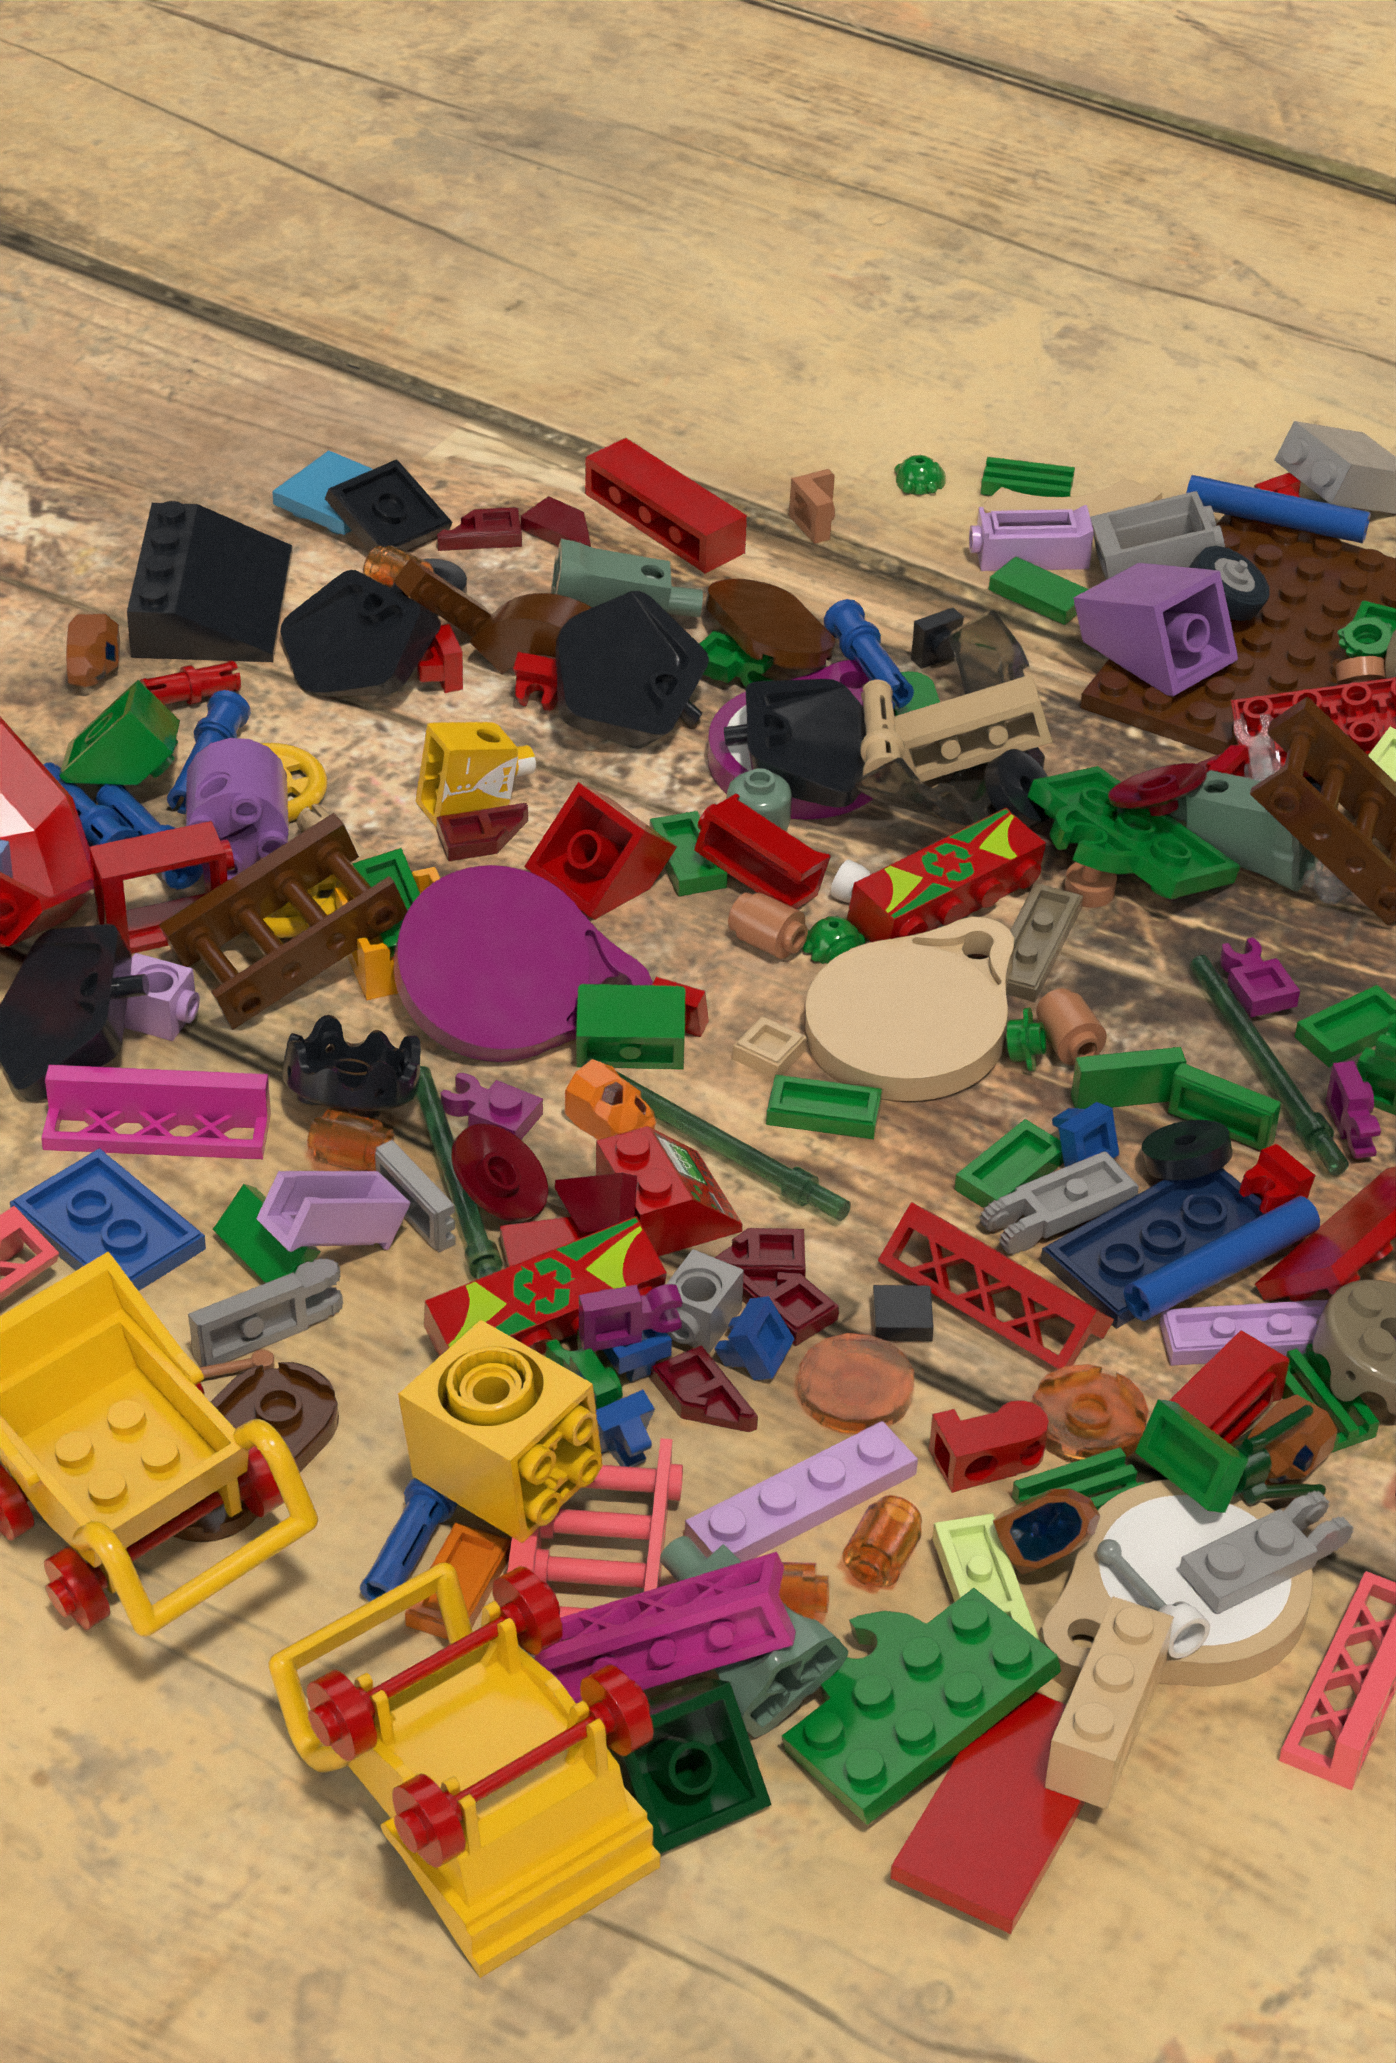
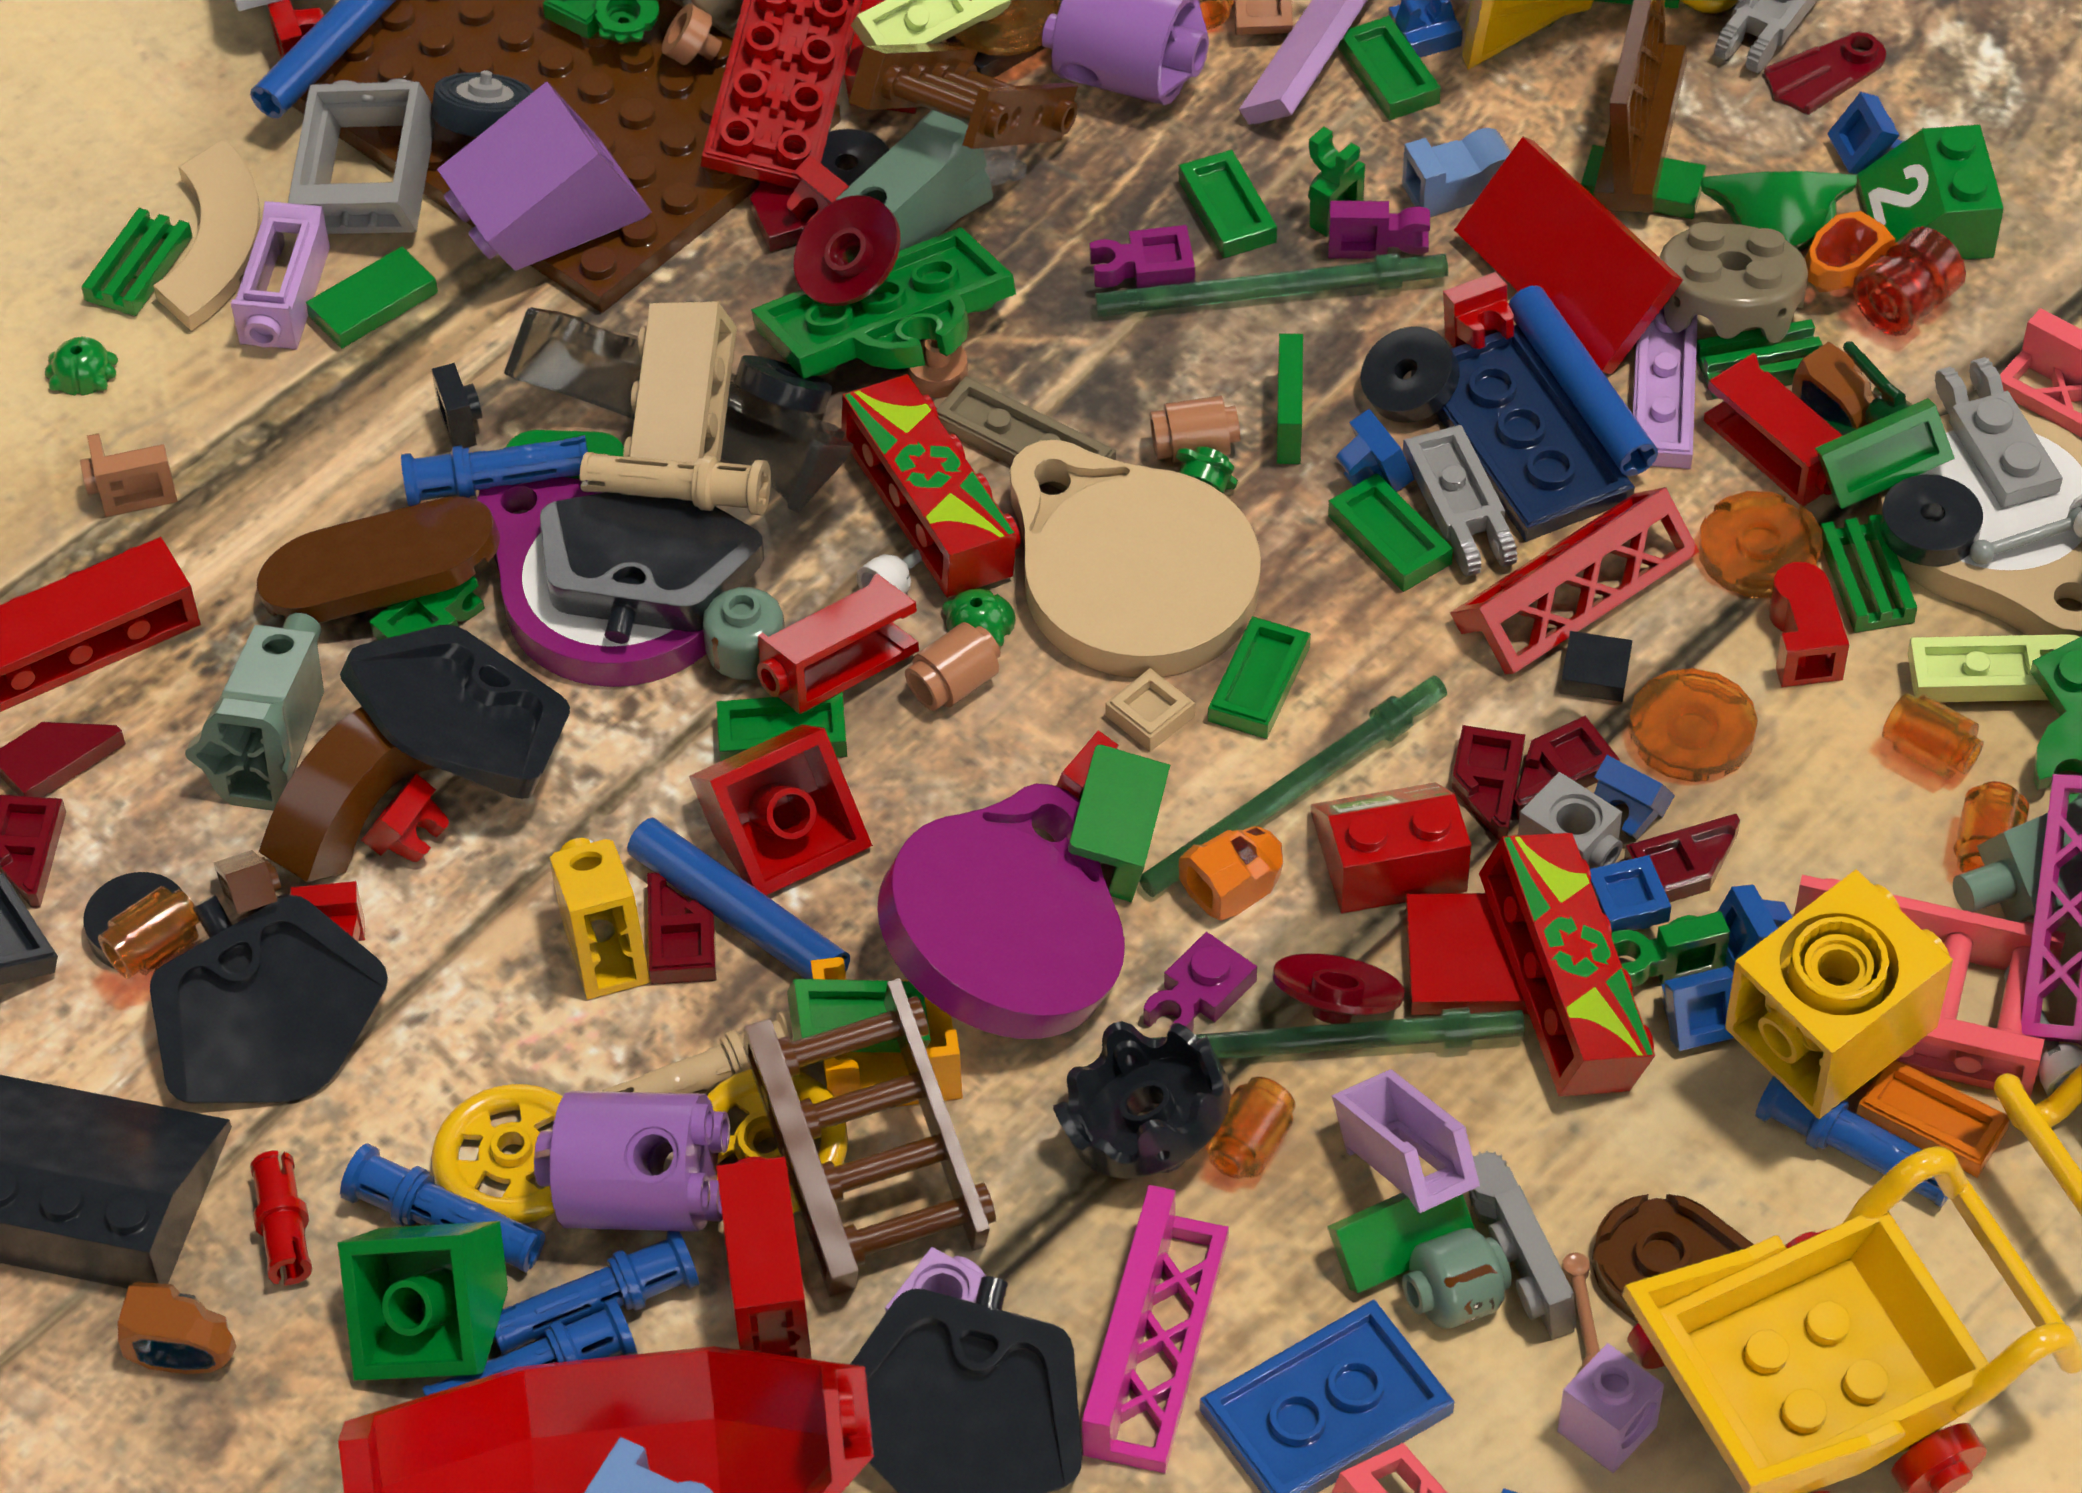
camera: 75 degrees left, 10 degrees up
(223, 1268) = (1457, 1278): none -> sand green head
(429, 1205) = (1336, 1072): light grey tile -> none
(527, 828) = (731, 898): none -> blue piece
(598, 1199) = (1427, 887): dark red tile -> none
(620, 1315) = (1640, 886): magenta plate -> none
(804, 1495) = (1846, 795): lavender plate -> none
(1046, 1528) = (1951, 591): rock -> none
(1141, 1489) = (1935, 498): none -> black piece
(1245, 1113) = (1350, 330): green tile -> none
(1263, 755) = (839, 150): clear plate -> none

